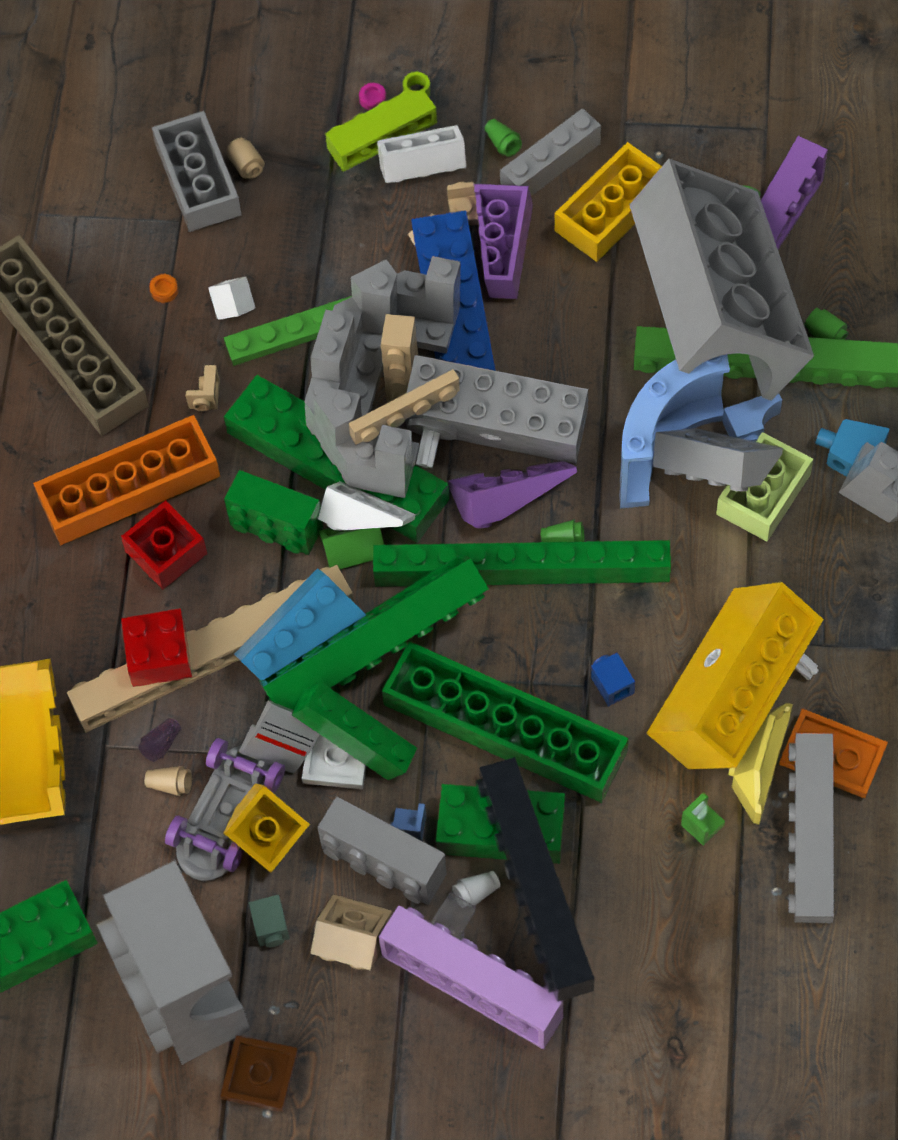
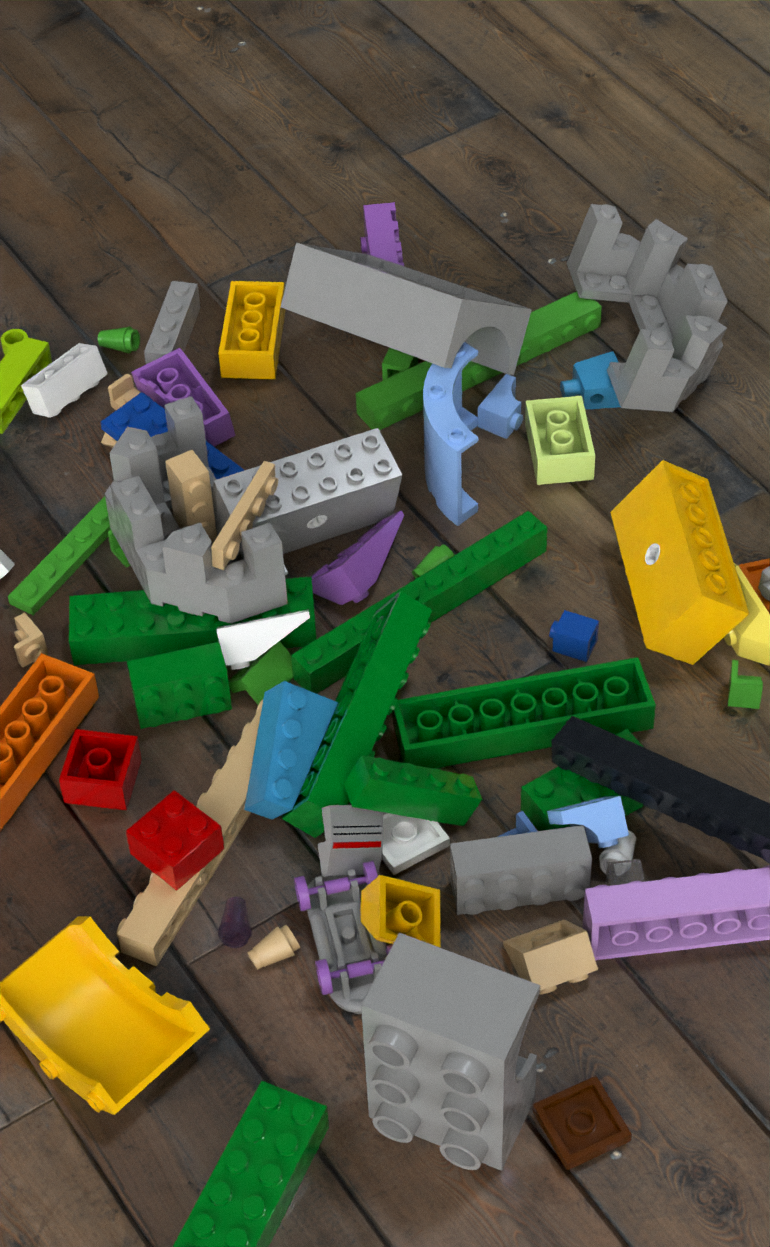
camera: 40 degrees left, 15 degrees down
(464, 849) = (601, 818): none -> light blue arch
(714, 457) = (514, 434): light grey slope -> none

